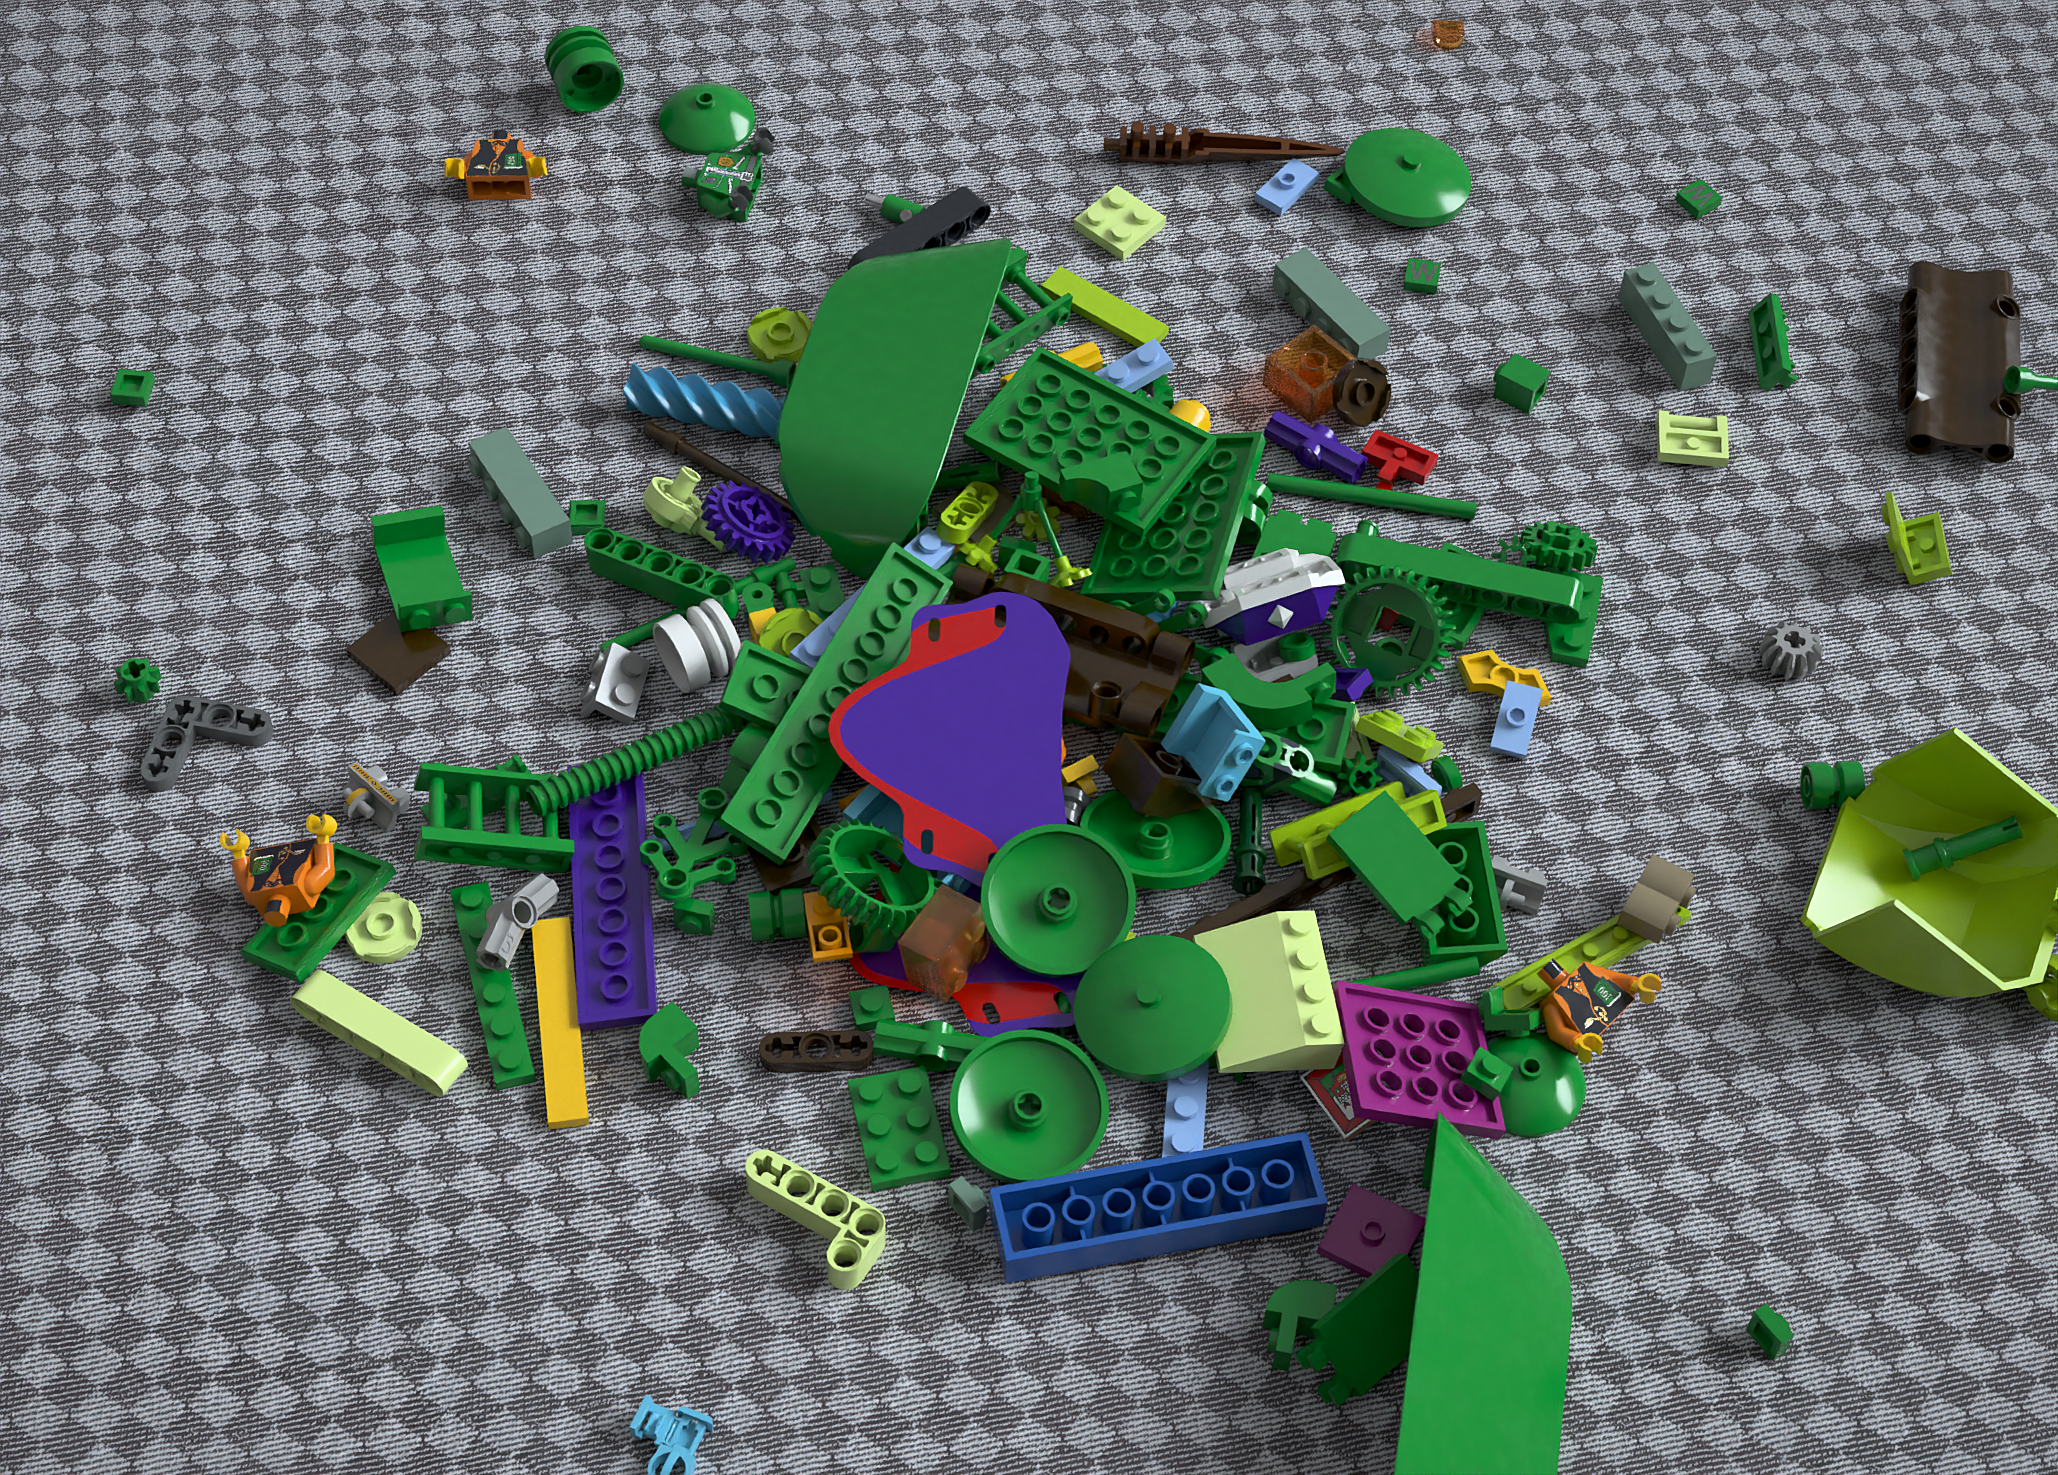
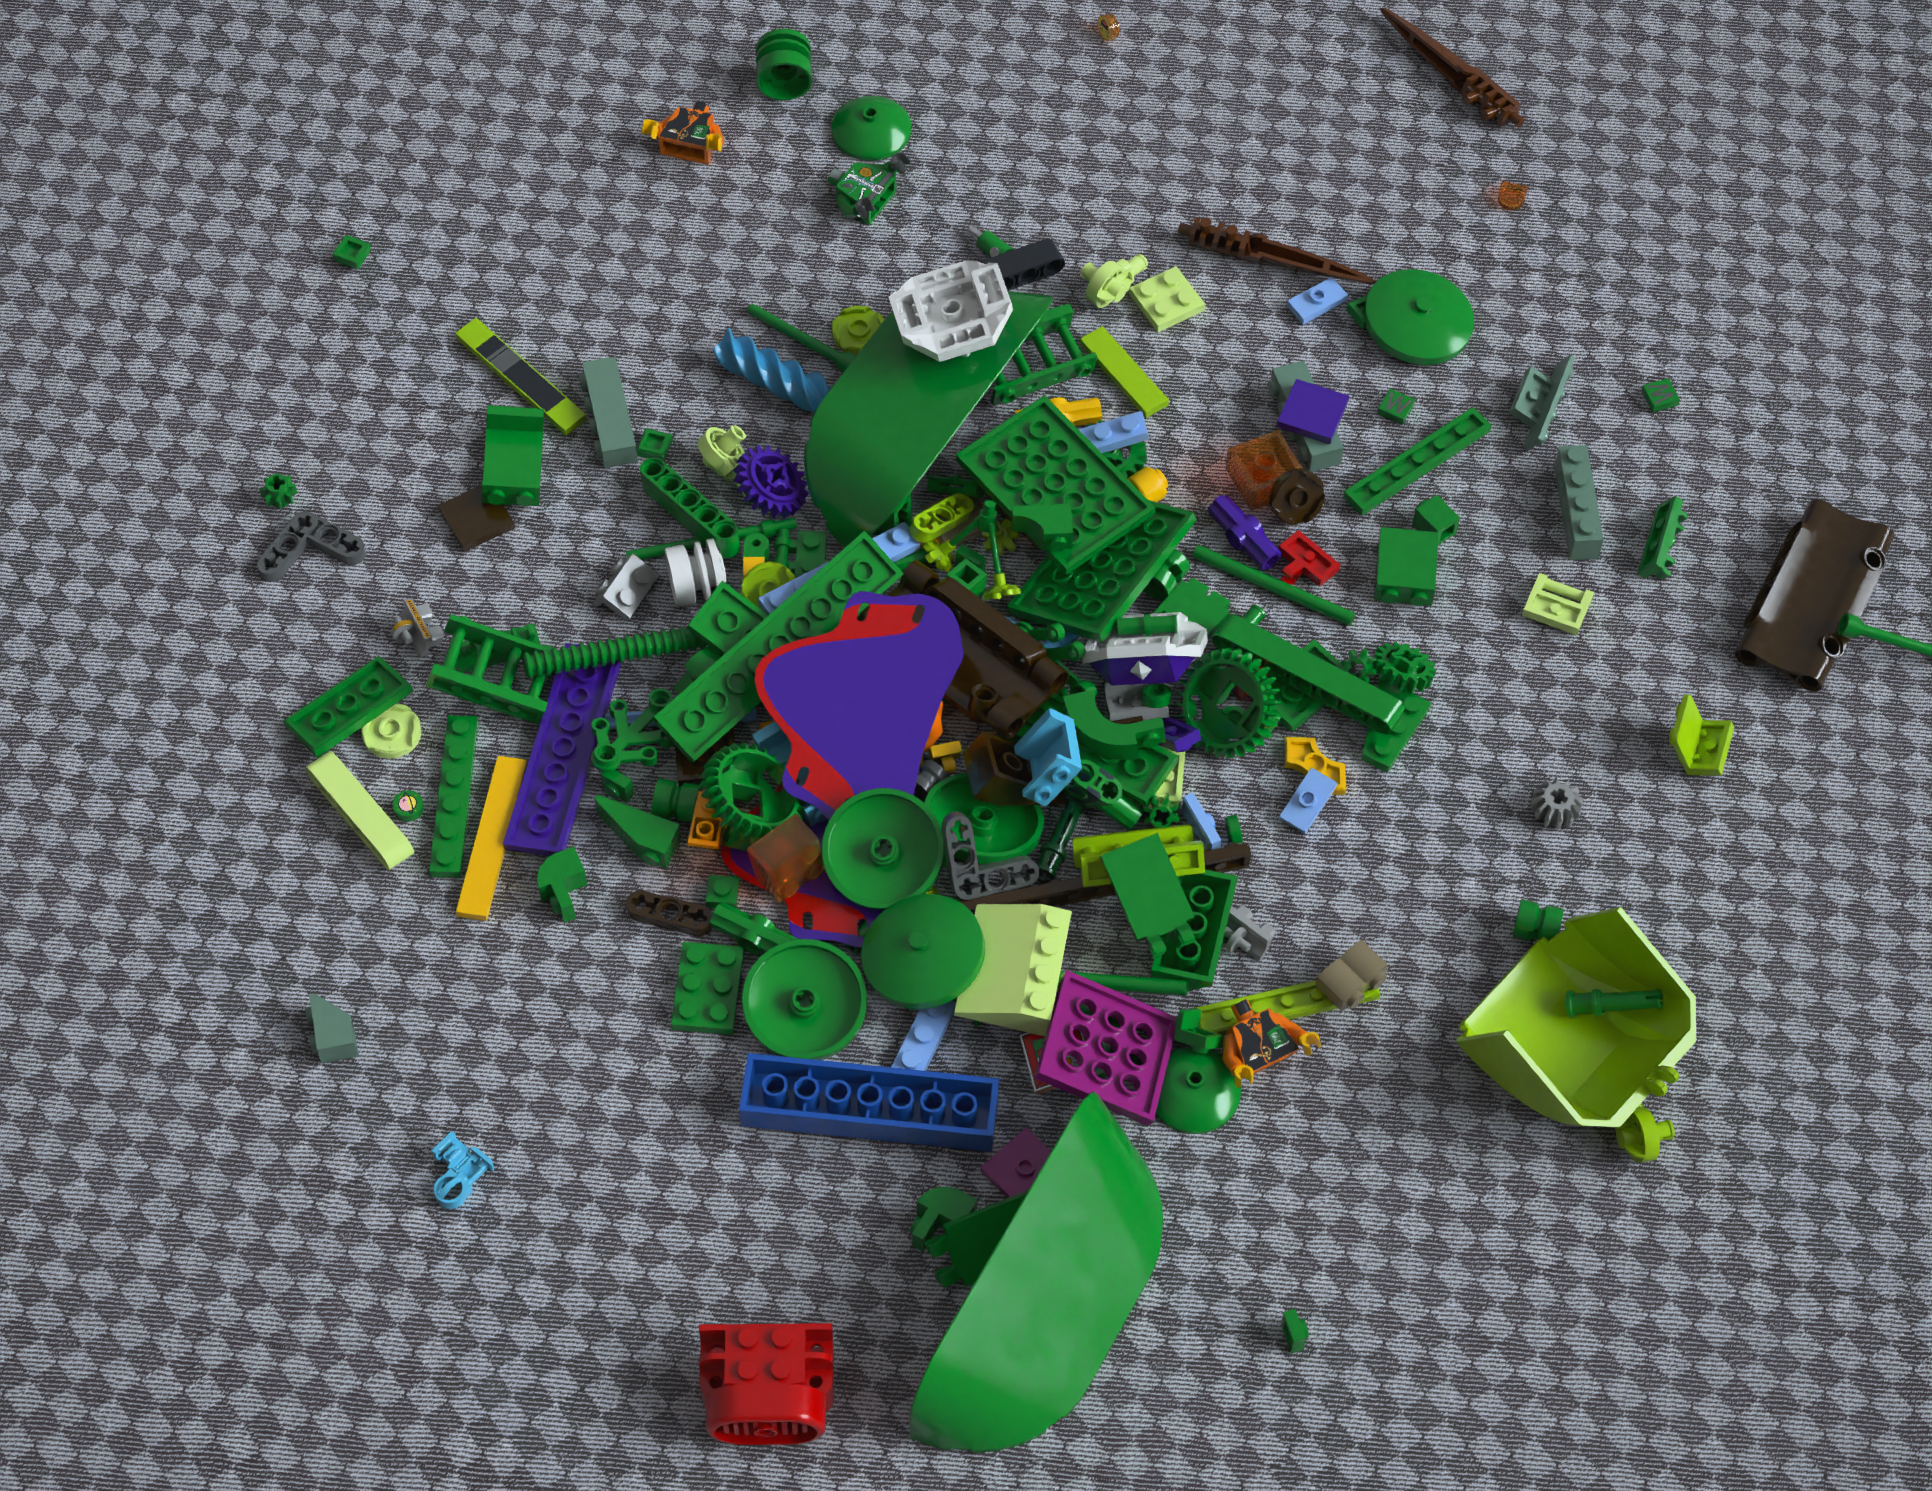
camera: 20 degrees right, 5 degrees up
(287, 875) = (330, 673): torso -> none
(393, 478) = (521, 376): none -> tile
(438, 1011) = (408, 806): none -> green tile
(444, 1314) = (333, 1031): none -> sand green slope
(511, 918) = (473, 760): light grey piece -> none
(677, 444) = (744, 402): dark brown bar -> none
(748, 964) = (646, 834): none -> green slope
(775, 1178) = (619, 1031): yellowish green beam -> none
(908, 269) = (952, 309): none -> white piece
(968, 1203) = (735, 1058): sand green plate -> none
(1053, 214) = (1111, 279): none -> yellowish green pin
(1171, 894) = (971, 869): none -> dark grey beam
(1261, 568) = (1147, 625): none -> green pin
(1341, 297) = (1313, 411): none -> dark purple tile
(1389, 730) = (1206, 790): lime plate -> none
(1471, 327) = (1417, 461): none -> green plate
(1486, 1073) = (1156, 1073): green plate -> none
(1511, 439) = (1406, 566): none -> green brick
(1576, 232) = (1538, 399): none -> sand green bracket

